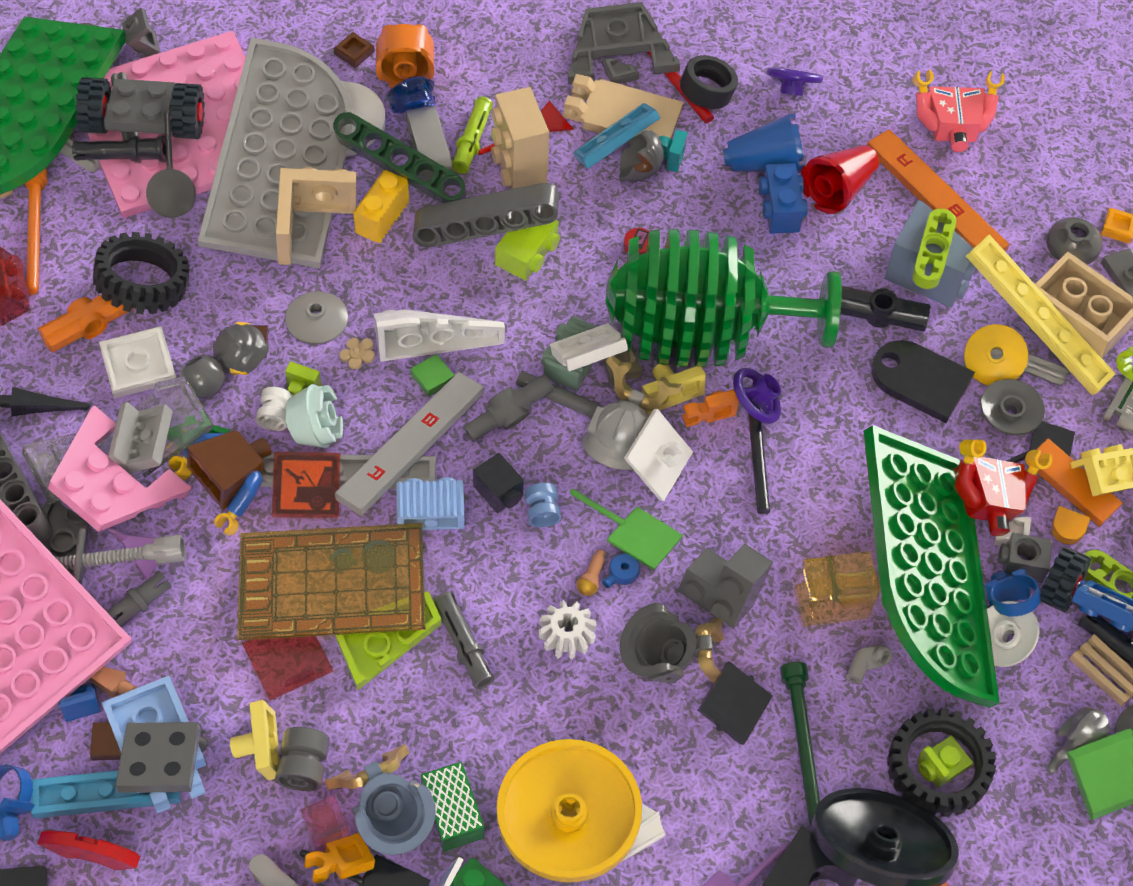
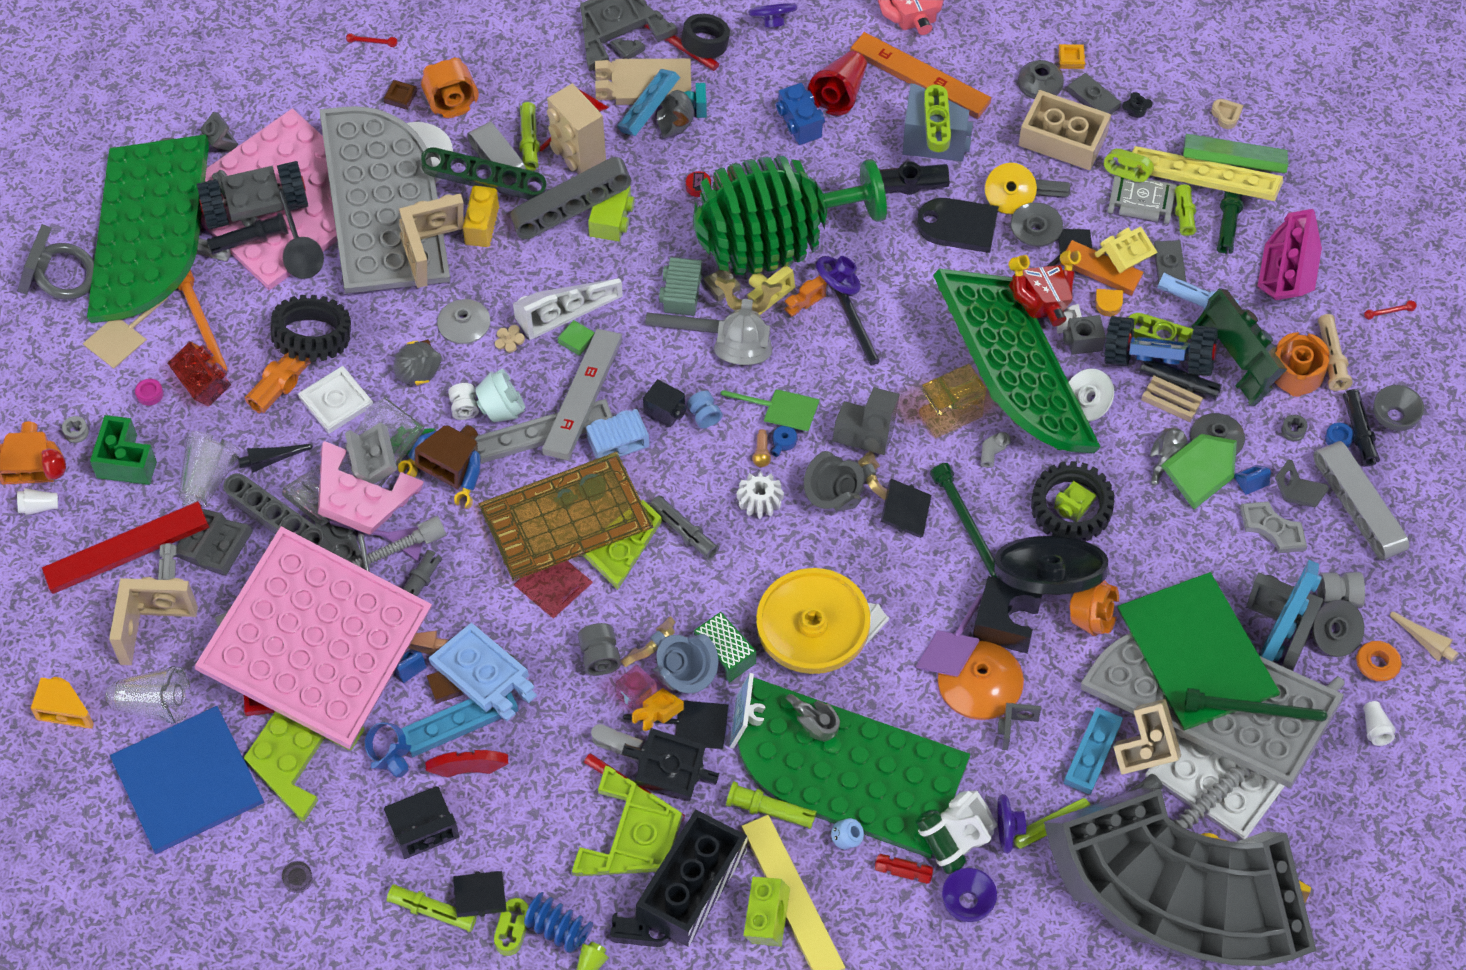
camera: 15 degrees left, 0 degrees up
(158, 757) = (494, 678): dark grey tile -> none
(204, 375) = (397, 390): dark grey piece -> none
(261, 741) = (560, 648): light yellow tile -> none
(301, 377) = (475, 371): lime tile -> none
(305, 485) = (513, 451): clear red piece -> none
(411, 94) = (469, 118): clear blue piece -> none
(508, 408) = (648, 344): dark grey pin -> none
(588, 347) = (696, 276): white plate -> none
(658, 454) = (779, 343): white piece -> none
(769, 144) = (772, 74): blue cone -> none
(1012, 588) = (1082, 360): blue piece -> none
(1040, 315) = (1034, 146): light yellow tile -> none

